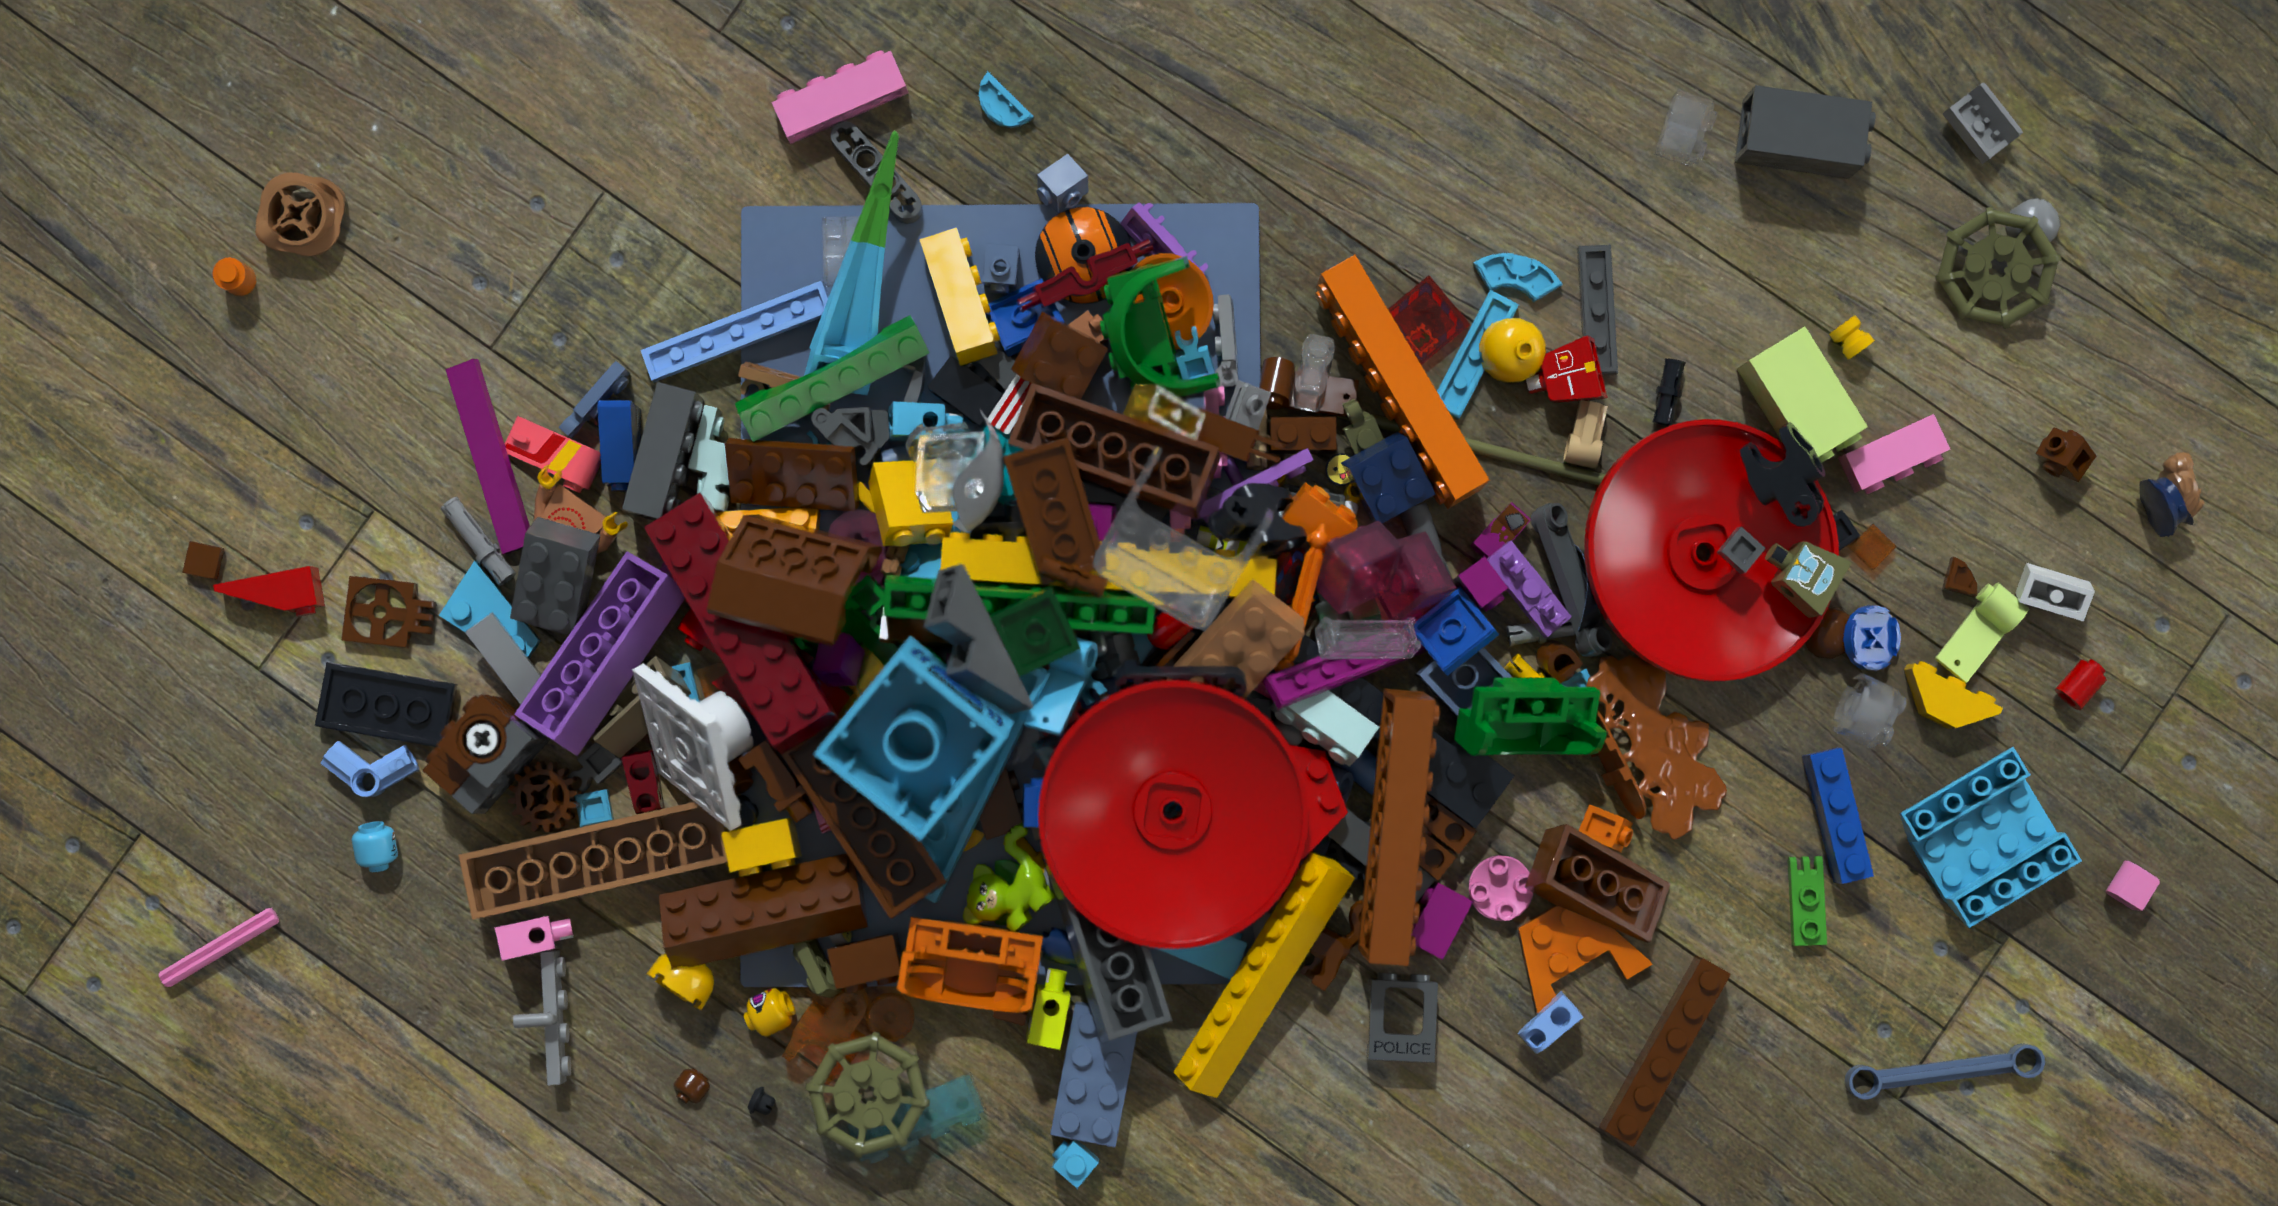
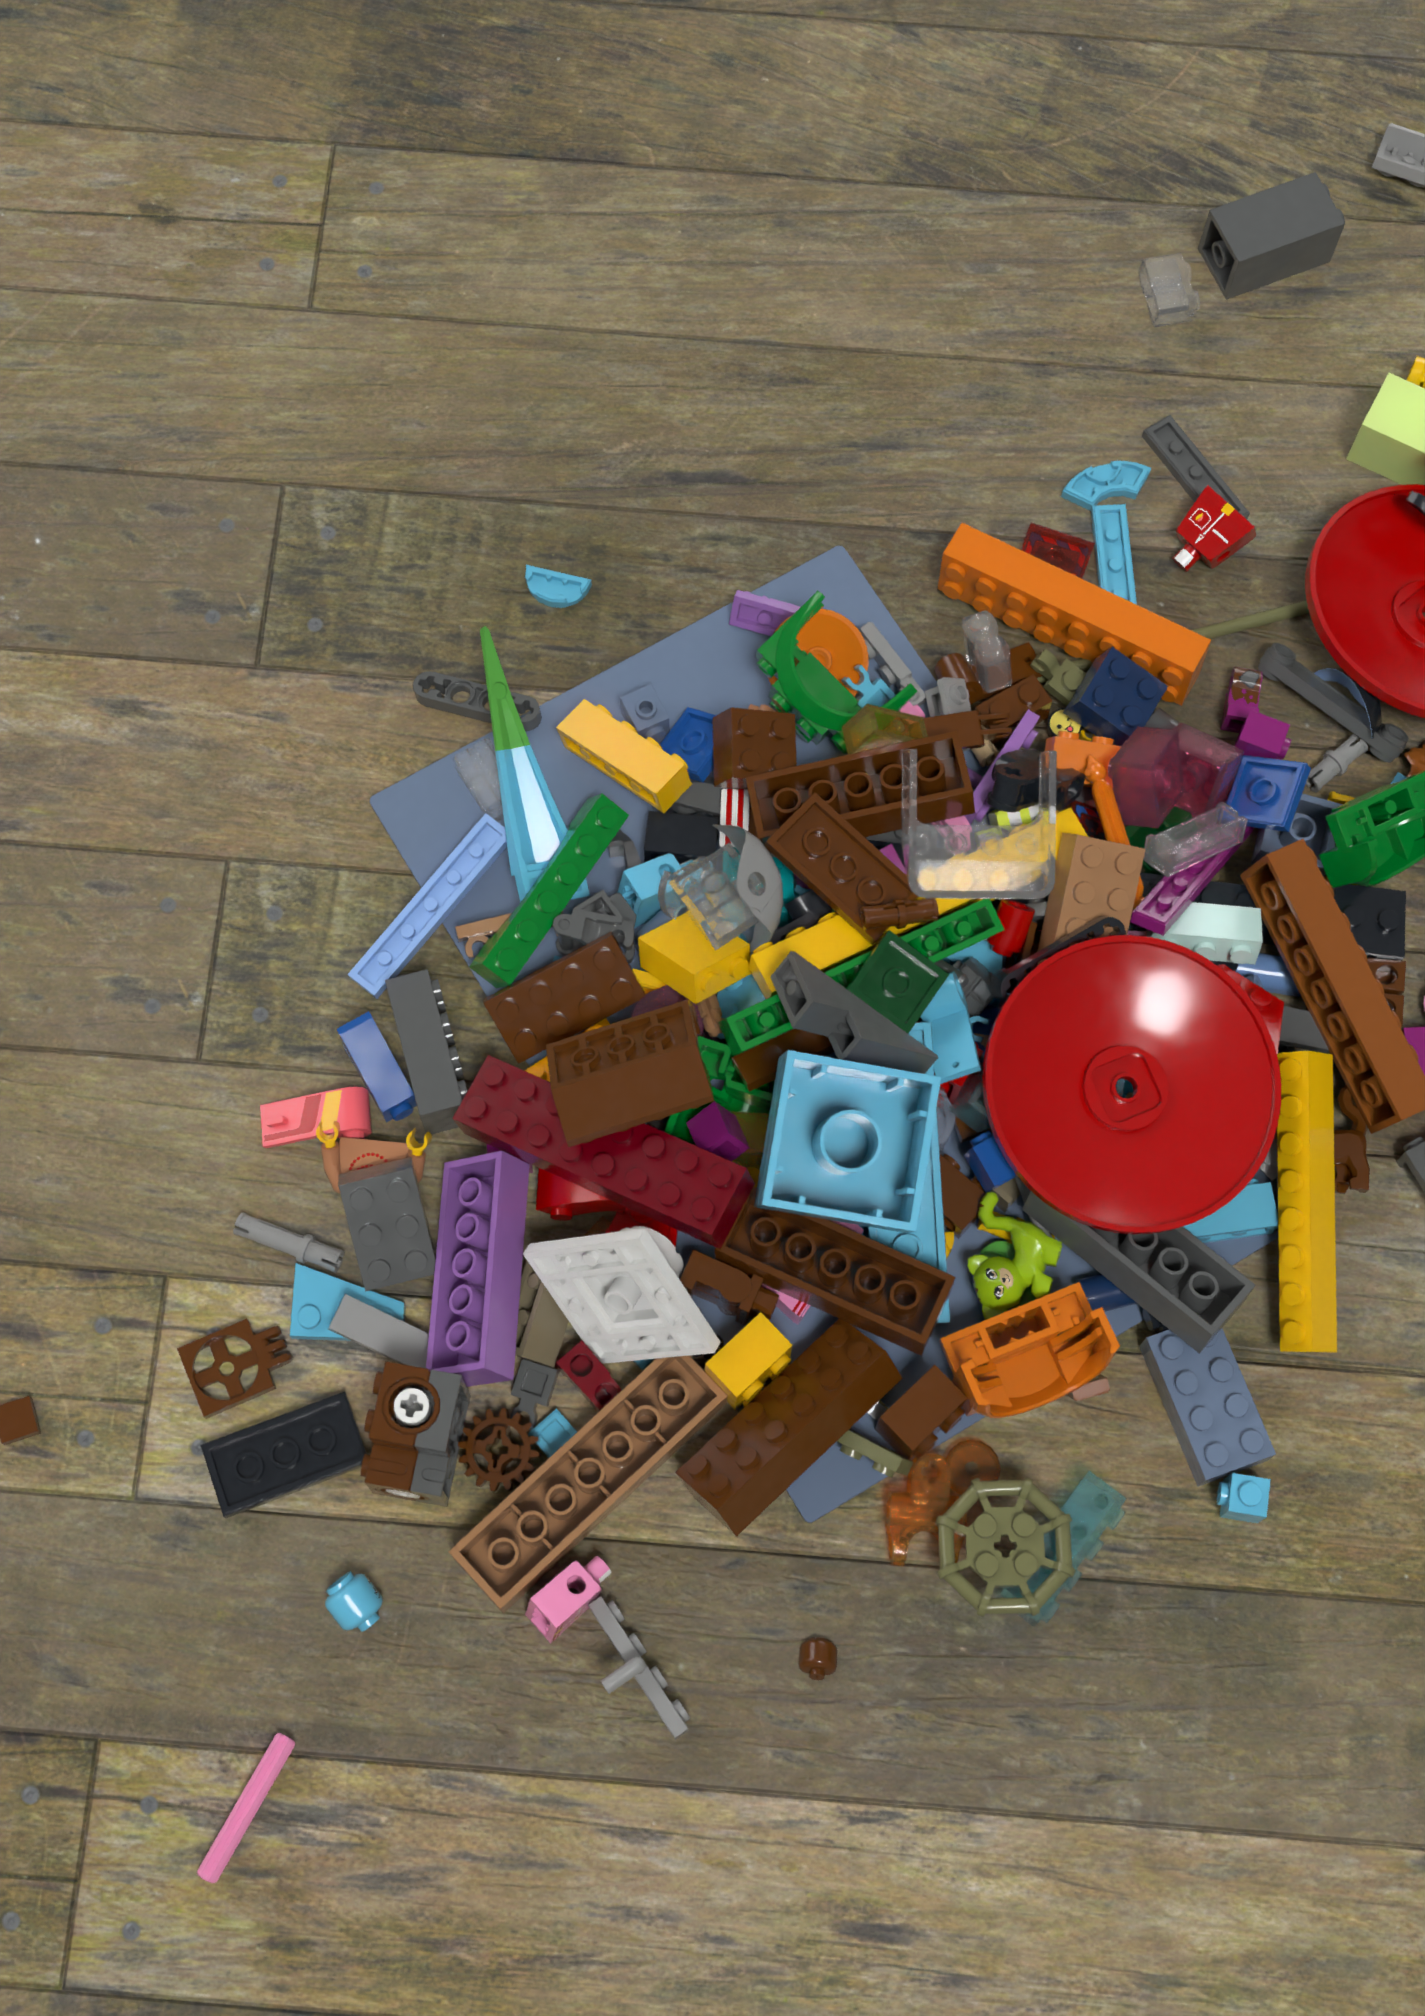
camera: 30 degrees left, 15 degrees down
(288, 590) = (115, 1401): red slope -> none
(353, 768) = (286, 1536): light blue piece -> none
(489, 454) = (255, 1156): magenta tile -> none
(611, 382) = (329, 1047): sand blue plate -> none
(684, 981) = (749, 1549): yellow cylinder -> none
(710, 459) = (474, 1032): light aqua plate -> none
(760, 1101) = (897, 1630): black piece -> none
(769, 1012) = (852, 1530): yellow head -> none
(839, 96) = (403, 655): bright pink brick -> none
(1047, 1024) = (1136, 1371): neon yellow torso -> none
(1062, 184) = (656, 617): brick -> none
(1068, 232) = (712, 685): orange dish -> none
(1070, 283) = (719, 688): dark red piece -> none
(1512, 350) = (1148, 540): yellow cylinder -> none
(1529, 589) = (1309, 727): medium lavender plate -> none
(1557, 660) = (1369, 774): reddish brown plate -> none
(1584, 443) = (1261, 583): tan piece -> none
(1668, 392) = (1303, 503): black pin -> none

